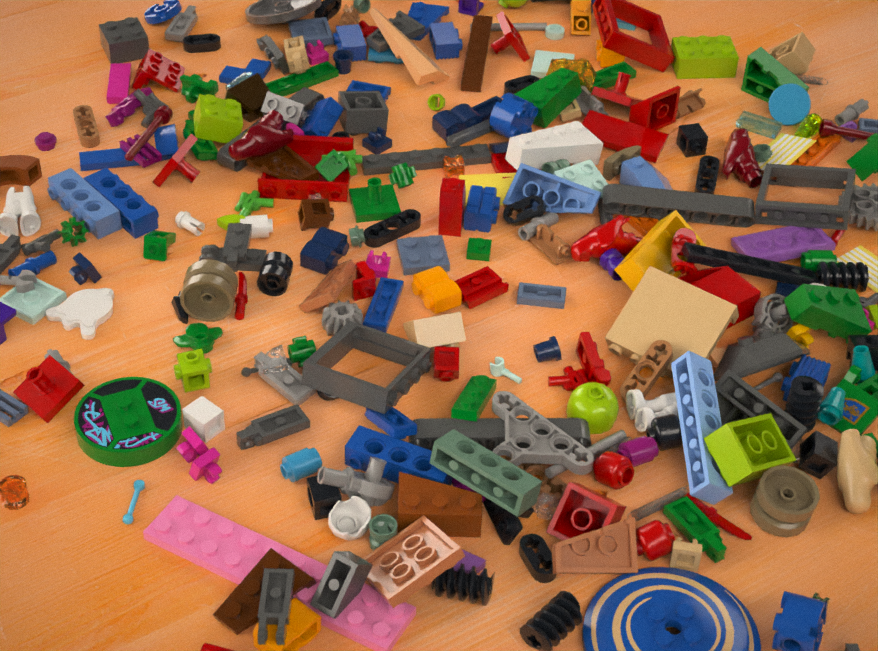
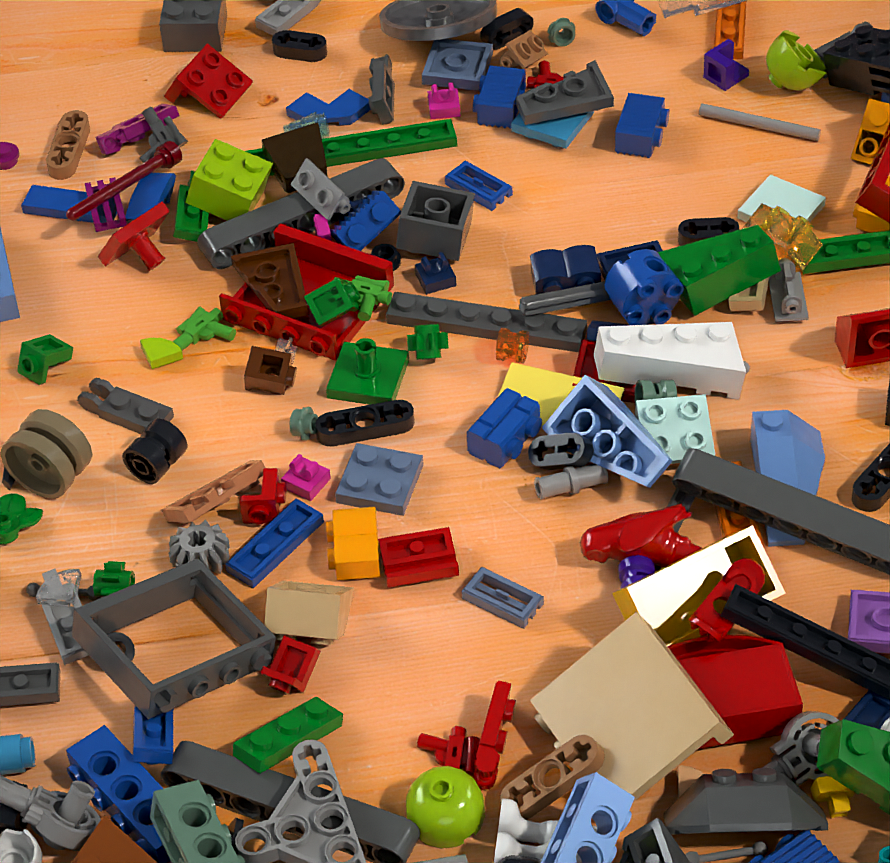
camera: 30 degrees right, 5 degrees up
(118, 82) = (152, 83): dark pink tile -> none
(135, 213) = (34, 279): blue brick -> none
(186, 221) = (99, 331): white pin -> none
(194, 86) = (241, 123): green hips -> none
(237, 244) = (130, 392): dark grey hinge -> none
(241, 298) = (98, 473): red piece -> none
(260, 225) = (180, 367): white brick -> none
(262, 138) = (258, 231): dark red animal -> none
(296, 54) = (401, 101): tan hinge -> none
(324, 250) = (245, 432): dark blue brick -> none
(343, 60) = (469, 124): dark blue piece -> none
(417, 62) = (569, 153): light nougat wedge -> none
(427, 14) = (641, 73): blue wing -> none
(433, 102) = (561, 228): lime hinge -> none
(452, 206) = (448, 414): red slope -> none
(476, 53) = (675, 159): reddish brown tile -> none
(479, 249) = (463, 493): green plate -> none
(498, 369) = (366, 699): light aqua hand -> none
(510, 37) = (738, 146): red tile -> none
(547, 350) = (445, 691): dark blue piece -> none
(551, 245) = (567, 518): medium nougat hinge -> none
(554, 32) = (825, 148): light aqua tile -> none
(613, 164) = (769, 400): dark tan slope -> none
(618, 93) = (834, 288): red tile -> none
(621, 134) = (803, 363): red tile -> none

